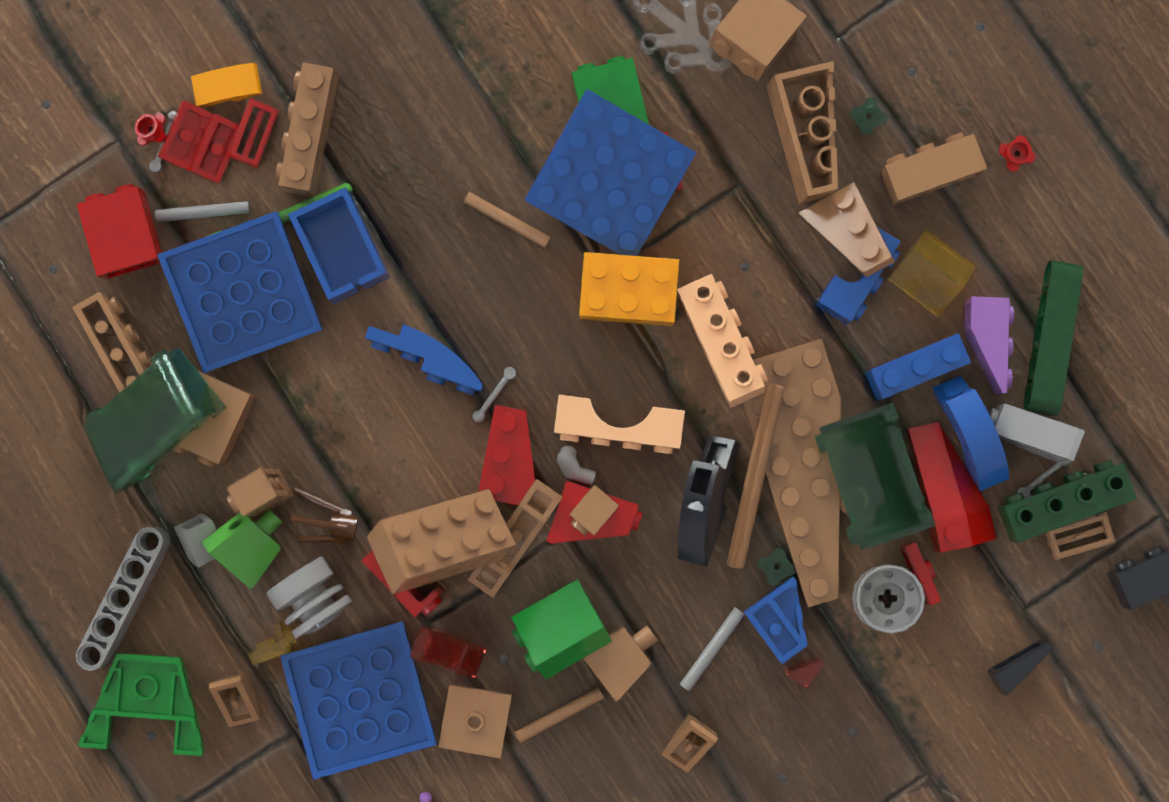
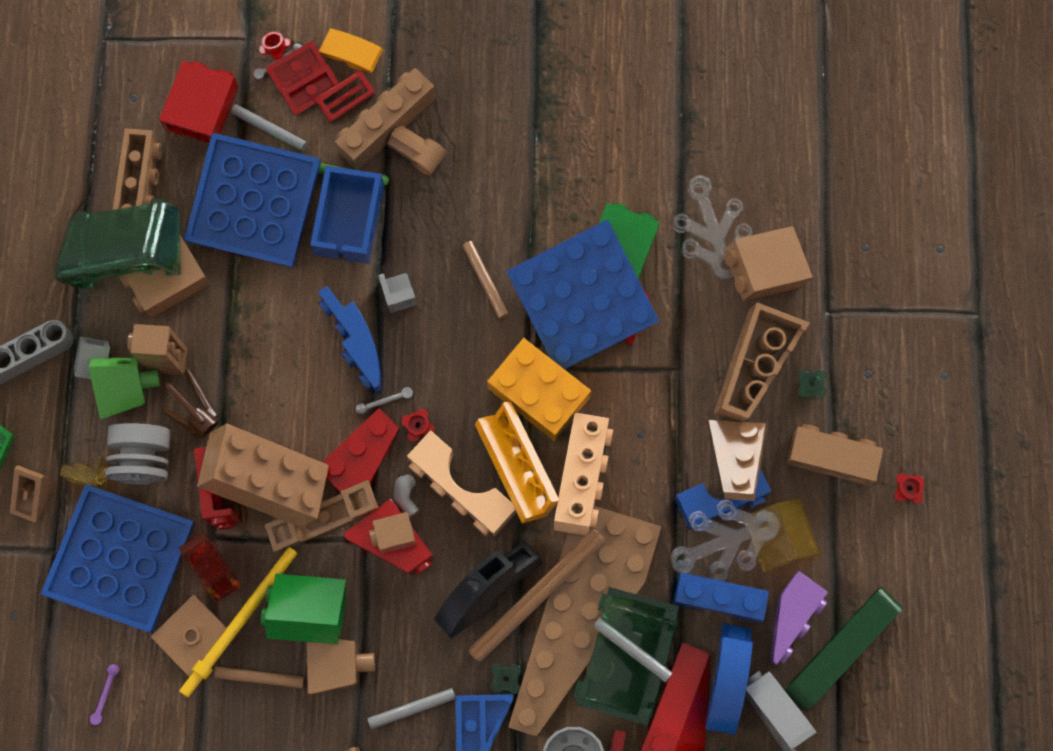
camera: 30 degrees right, 10 degrees down
(366, 139) = (422, 153): none -> medium nougat piece
(435, 286) = (398, 292): none -> light grey panel
(507, 744) = (202, 669): none -> yellow bar
(538, 387) = (410, 421): none -> red plate
(655, 373) = (515, 464): none -> light orange fence
(874, 467) = (632, 649): none -> light grey bar
(892, 312) = (728, 539): none -> clear plant

